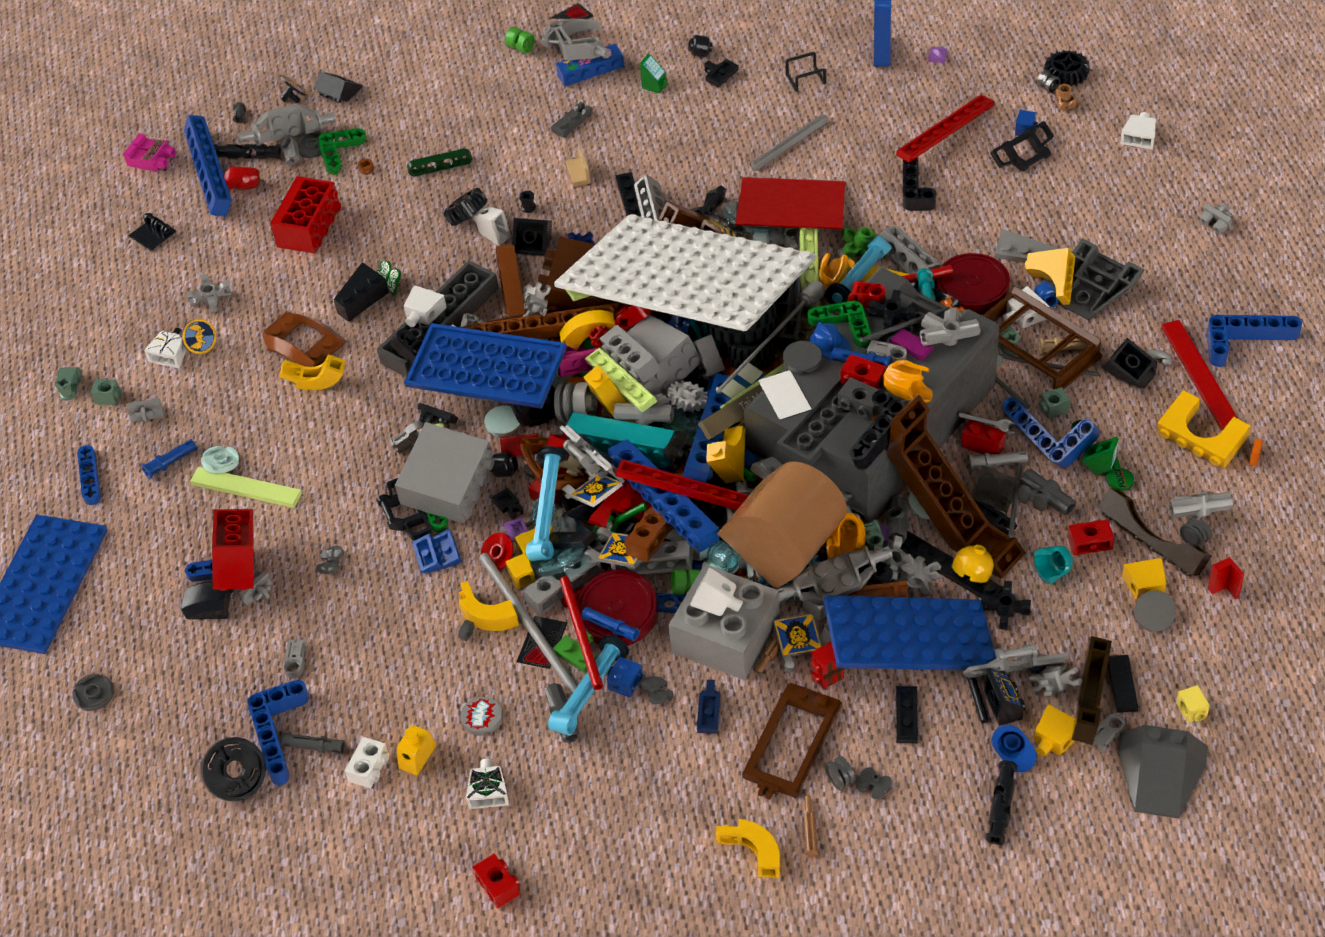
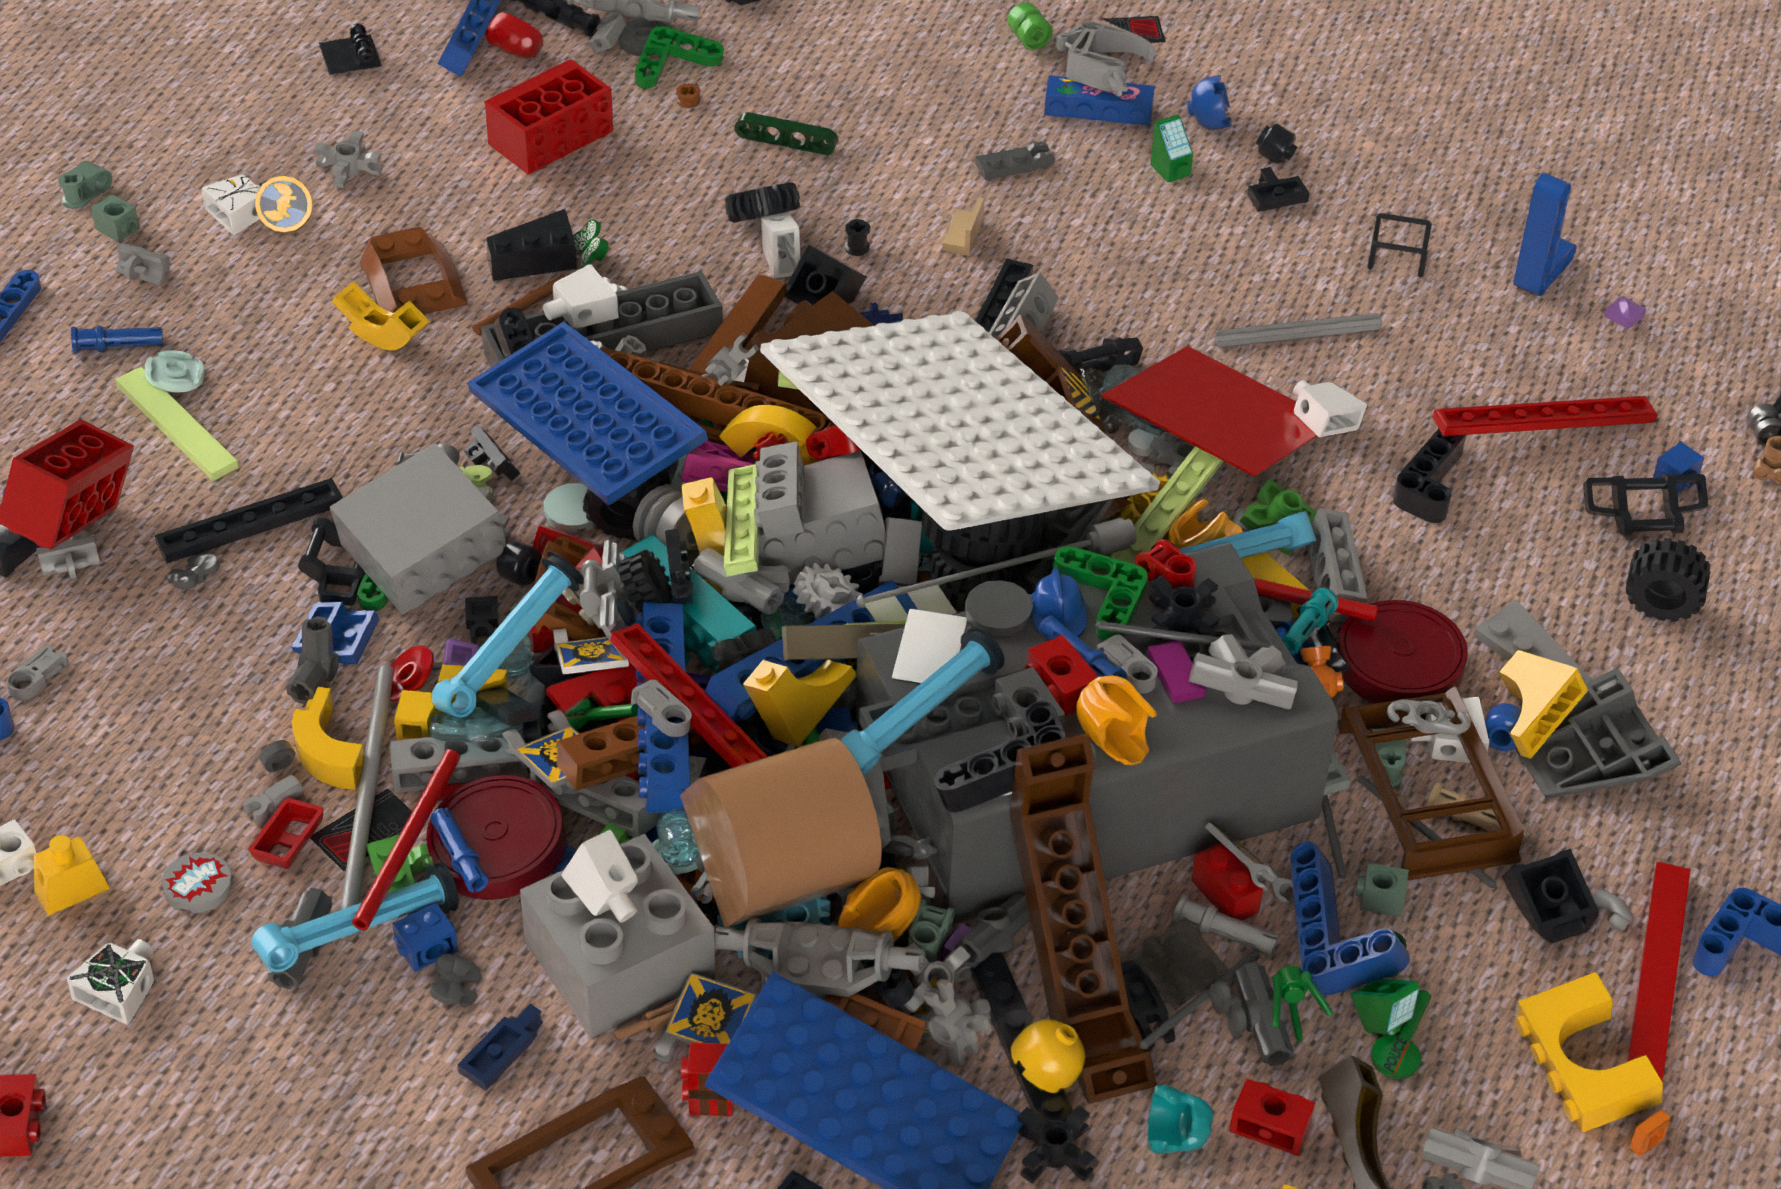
camera: 25 degrees right, 5 degrees down
(336, 518) = (247, 520): none -> black plate
(378, 324) = (520, 304): none -> dark orange bar
(444, 571) = (316, 660): none -> dark grey piece
(483, 651) = (272, 798): none -> light grey bar
(499, 670) = (275, 834): none -> red piece
(599, 436) = (645, 579): none -> black tyre
(608, 422) = (682, 588): none -> black hinge
(650, 39) = (1209, 103): none -> blue cylinder
(670, 495) = (660, 706): none -> light grey piece
(816, 384) = (978, 654): none -> medium azure piece
(839, 176) = (1327, 408): none -> white torso
(1006, 307) = (1440, 725): none -> light grey piece
(1053, 472) = (1292, 986): none -> green plant
(1068, 182) = (1668, 580): none -> black tyre

